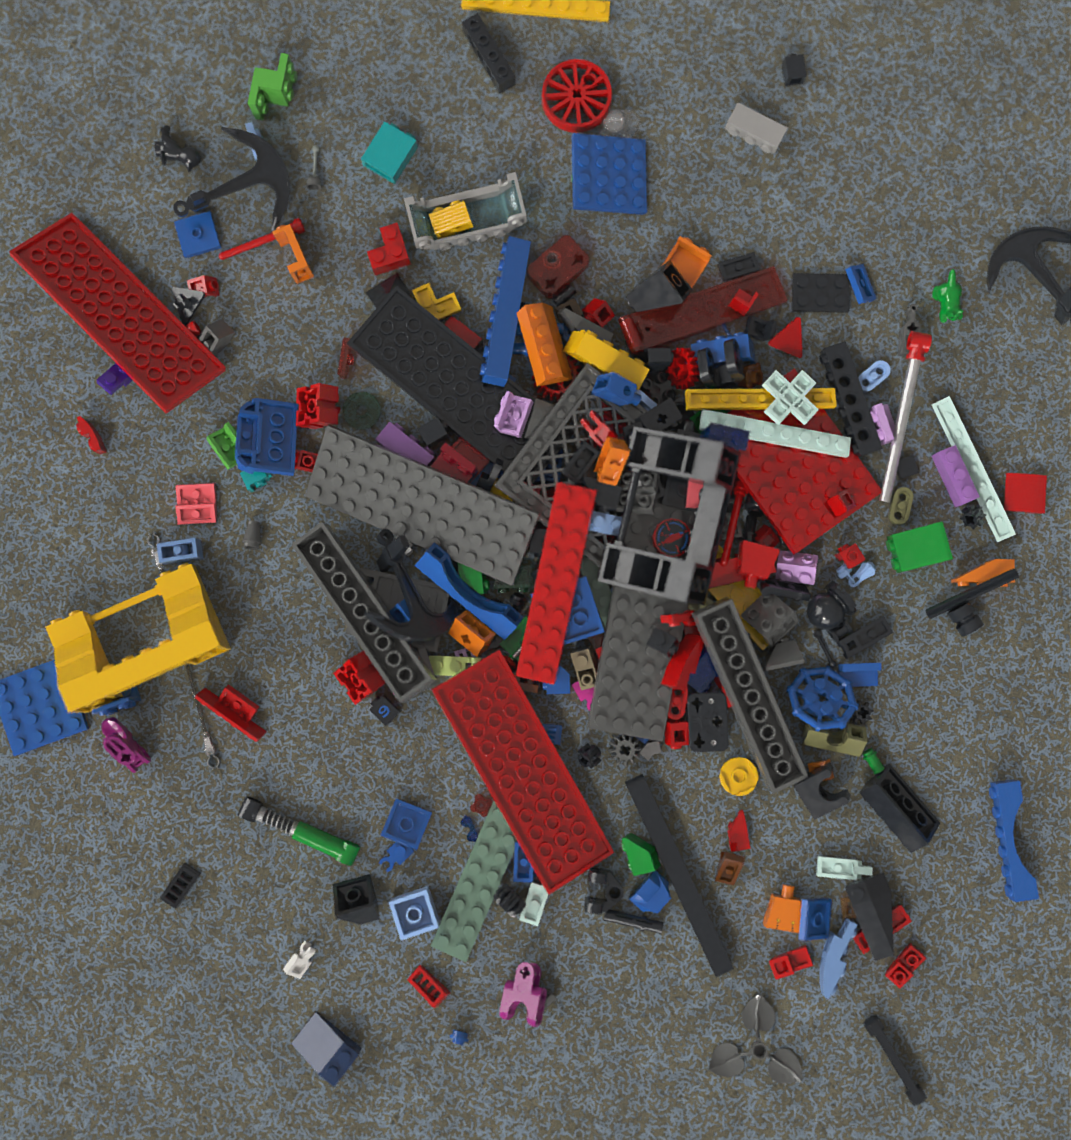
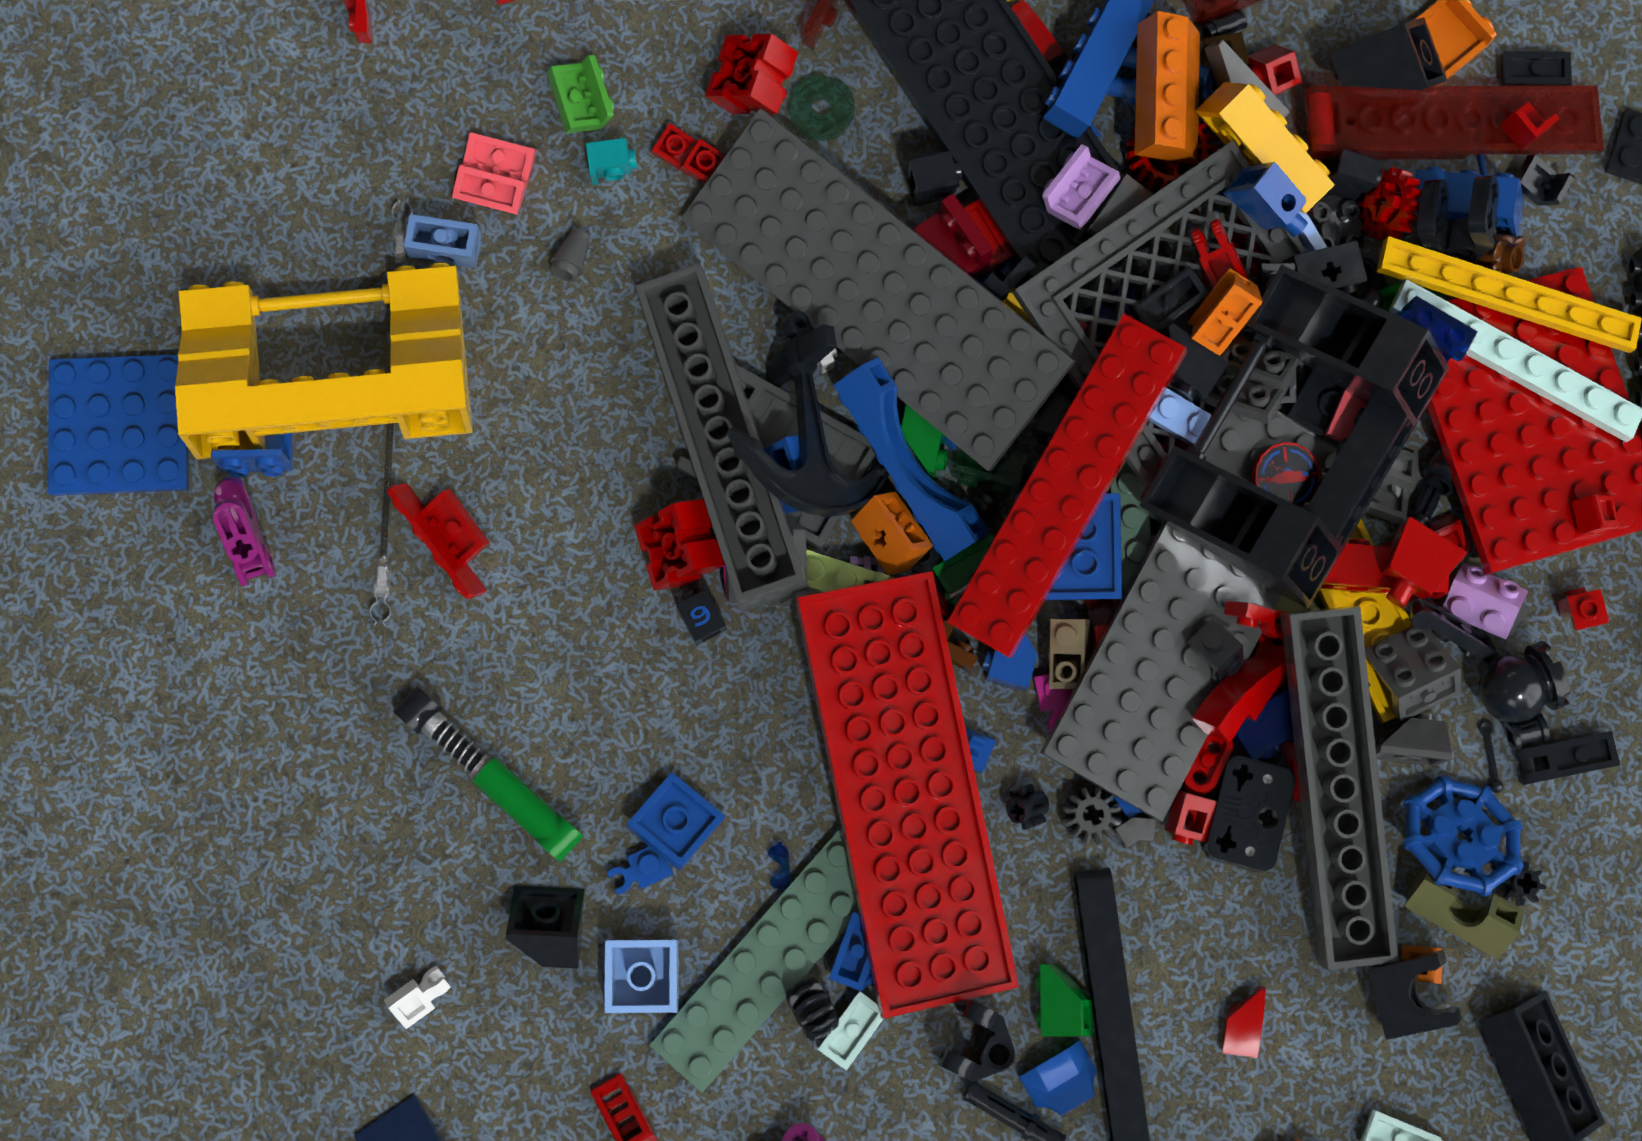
camera: 15 degrees right, 5 degrees down
(181, 896) = (236, 801): black slope -> none
(266, 437) = (650, 98): blue plate -> none
(397, 441) = (866, 168): medium lavender brick -> none
(476, 806) = (803, 832): clear red plate -> none
(729, 868) = (1211, 1078): reddish brown slope -> none
(733, 774) = (1265, 922): yellow tile -> none
(739, 492) = (1425, 443): red piece -> none
(789, 339) = (1588, 214): red piece -> none
(790, 397) = (1560, 306): light aqua plate -> none
(860, 673) = (1542, 817): blue panel -> none
(866, 570) = (1601, 646): light blue piece -> none
(873, 761) = (1519, 975): green pin -> none

